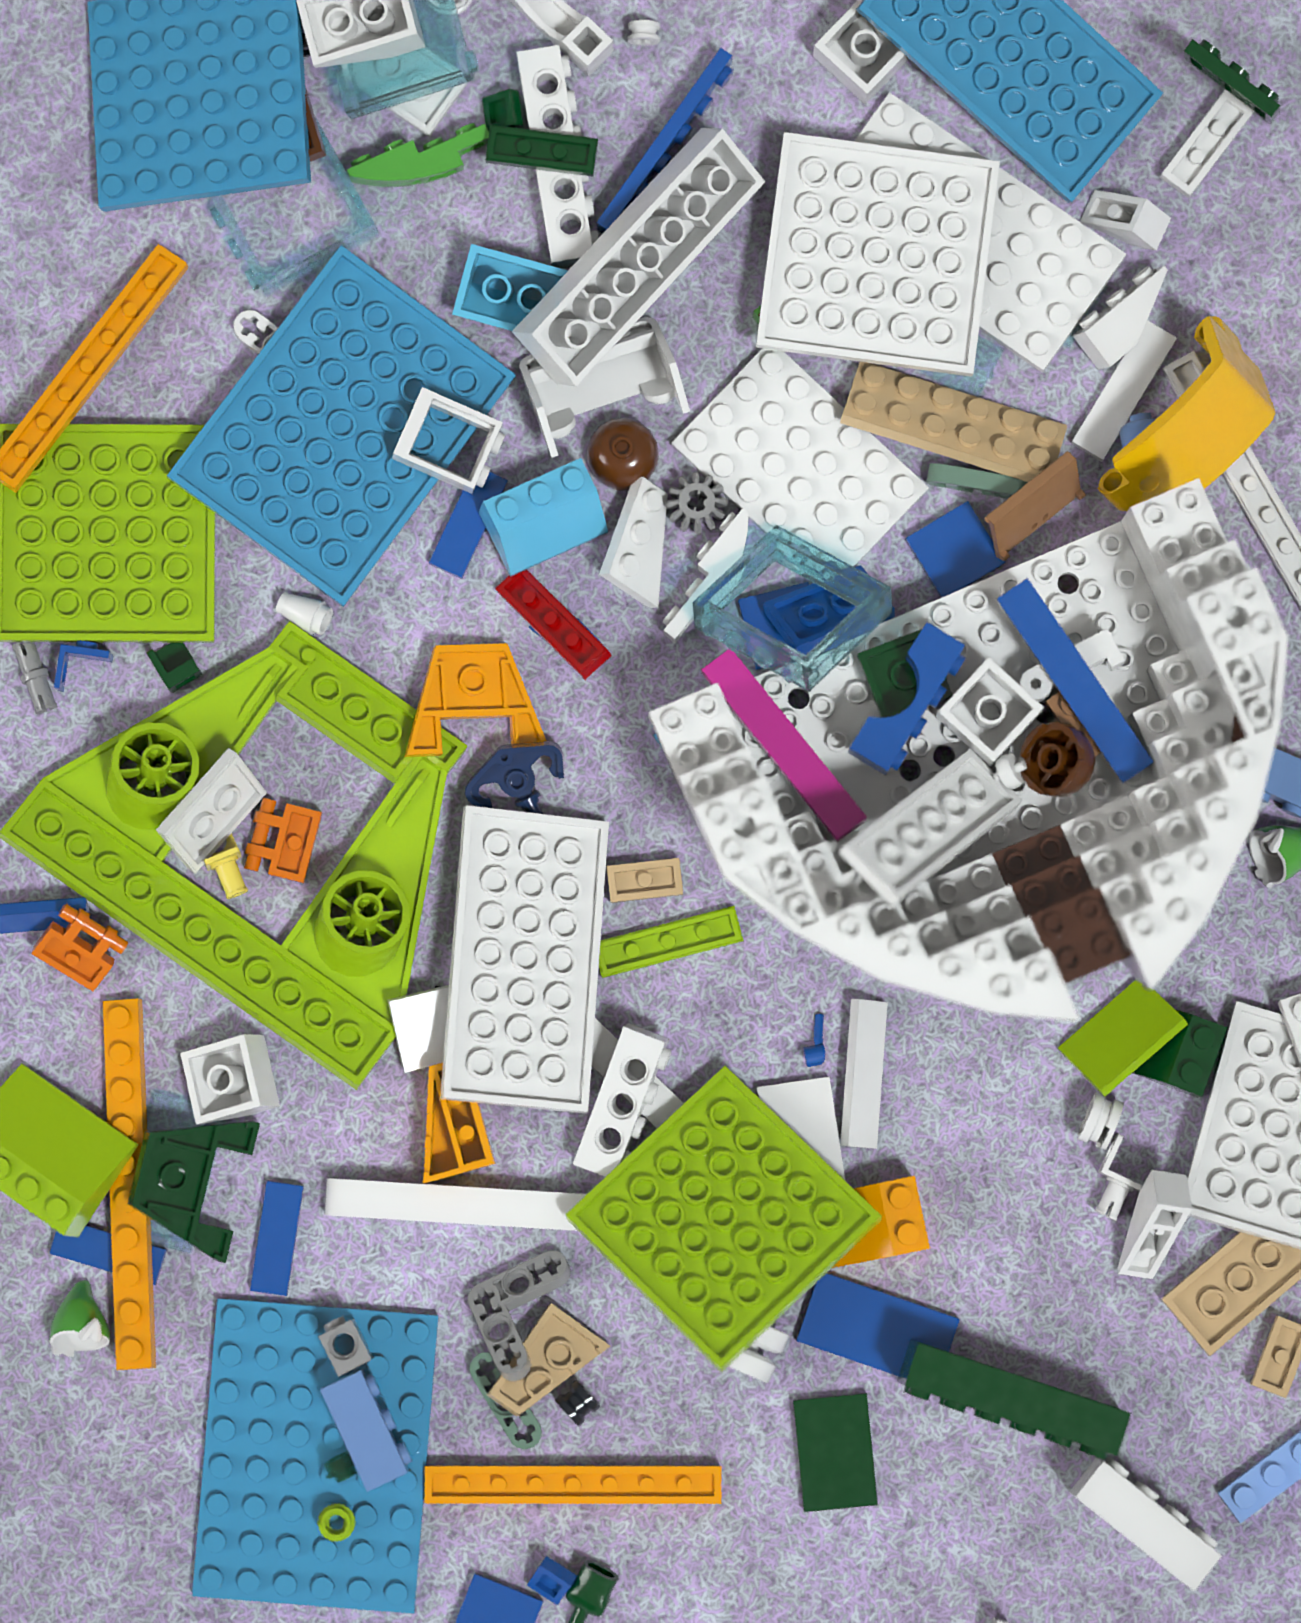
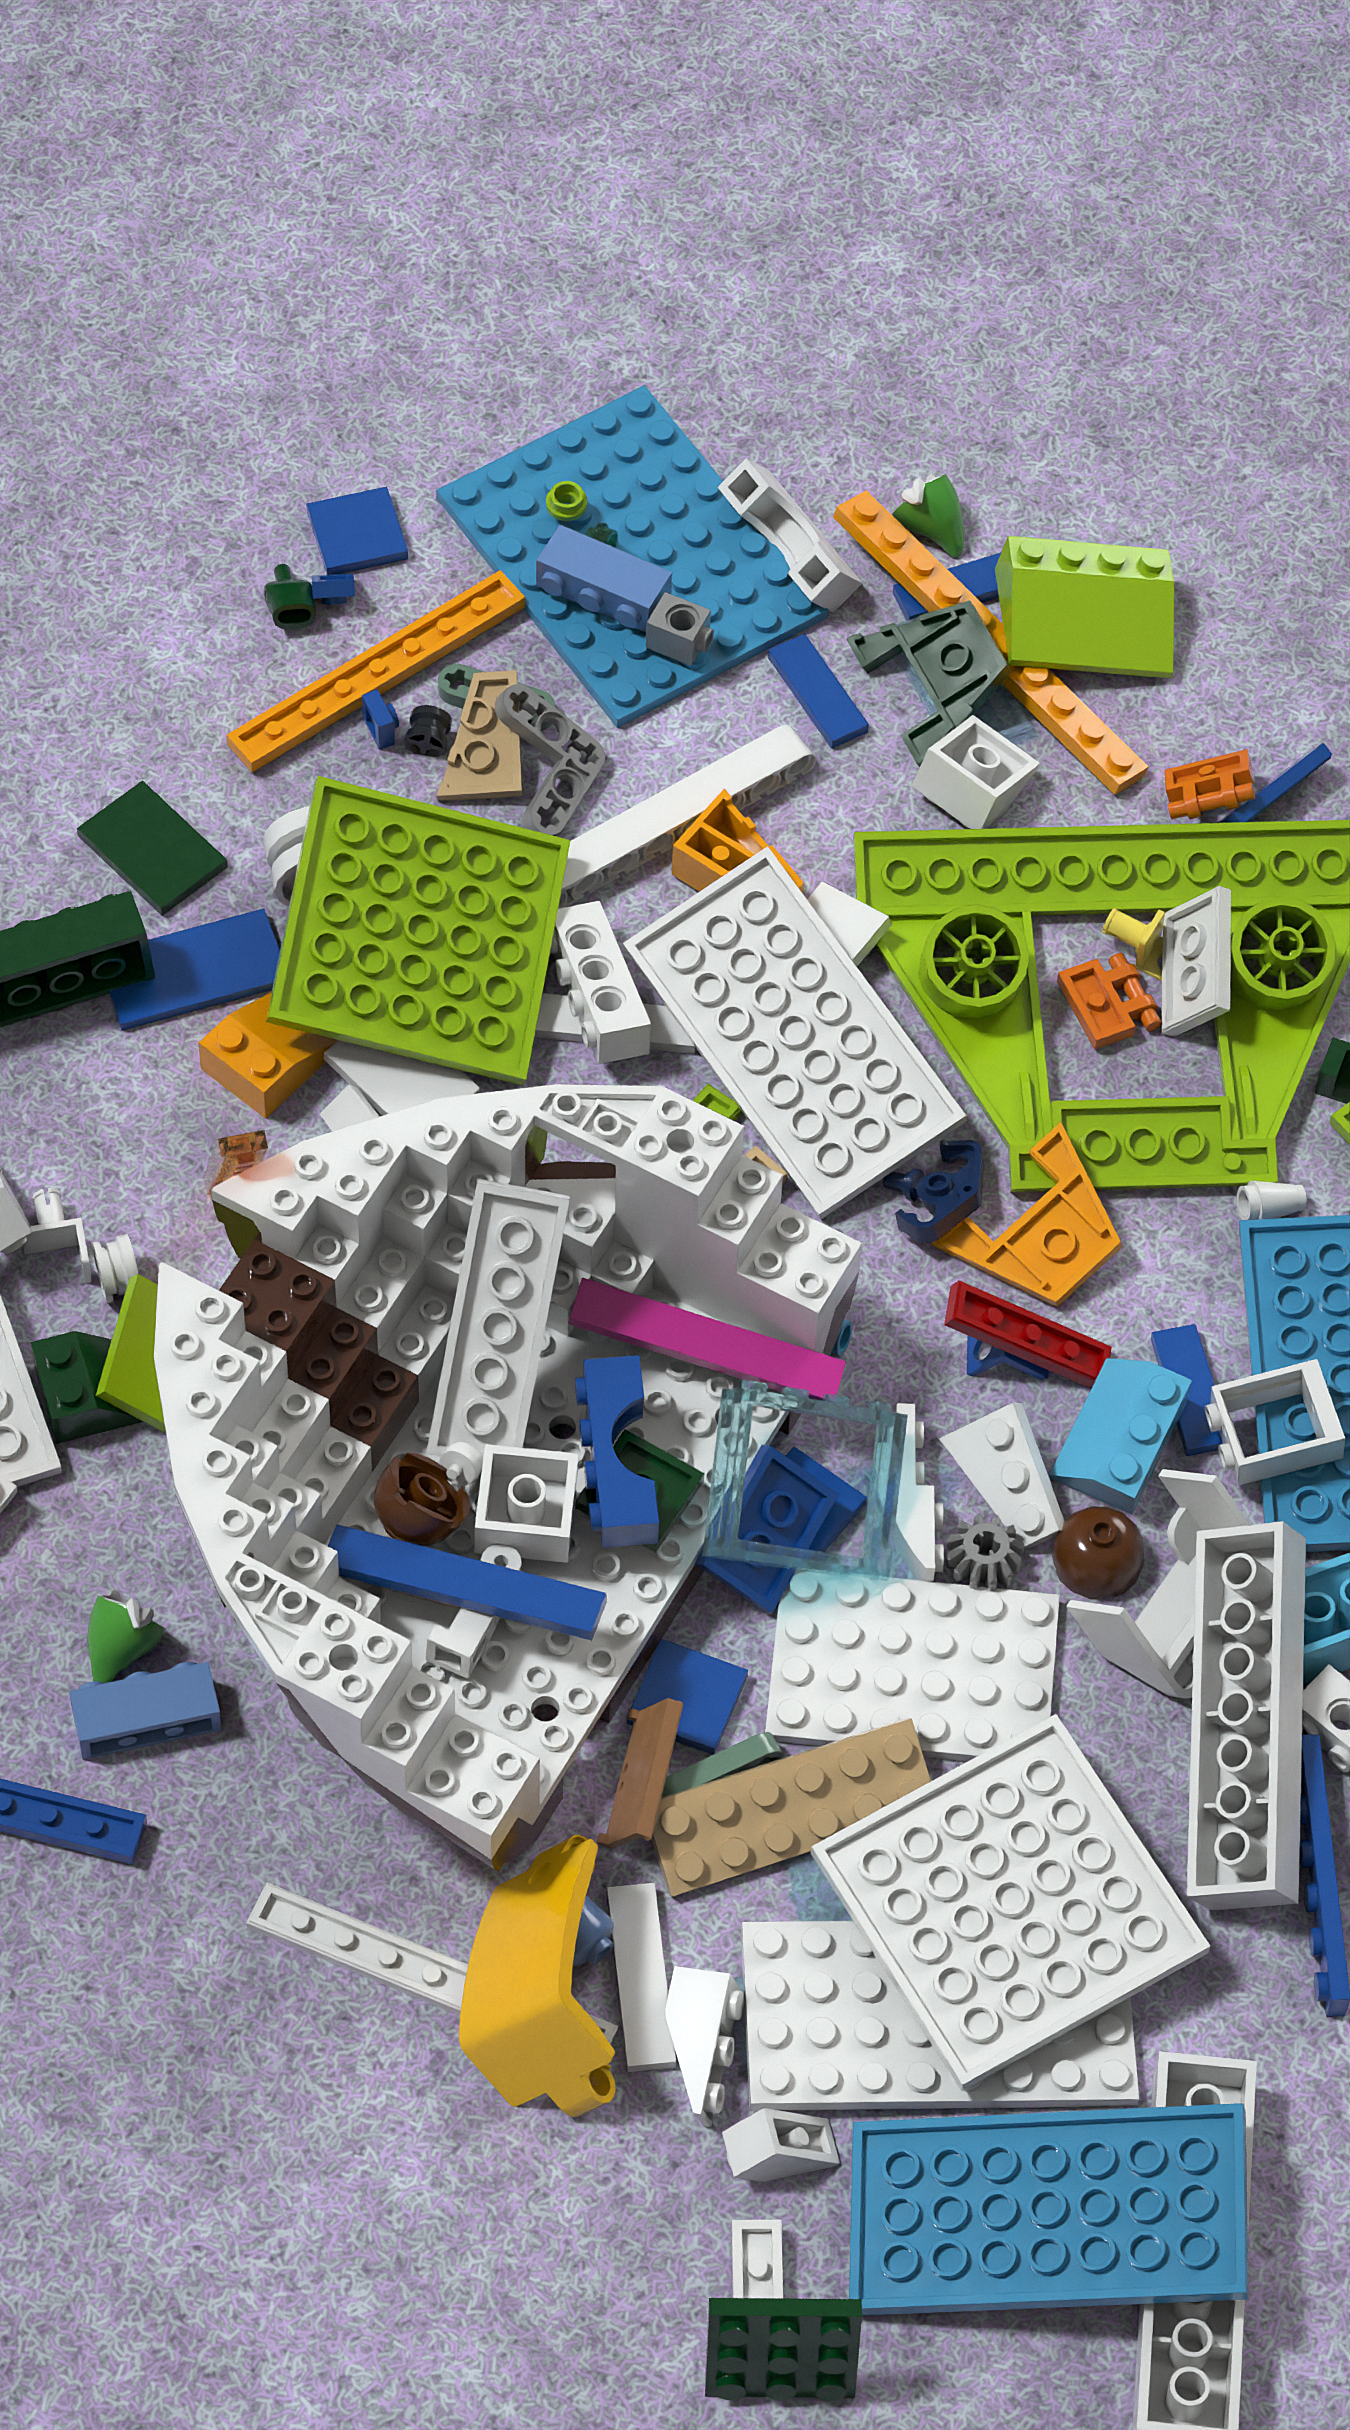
camera: 140 degrees right, 25 degrees down
(193, 1415) = (772, 511): none -> white arch
(602, 1437) = (380, 719): none -> blue plate
(1011, 1081) = (234, 1156): none -> clear orange plate

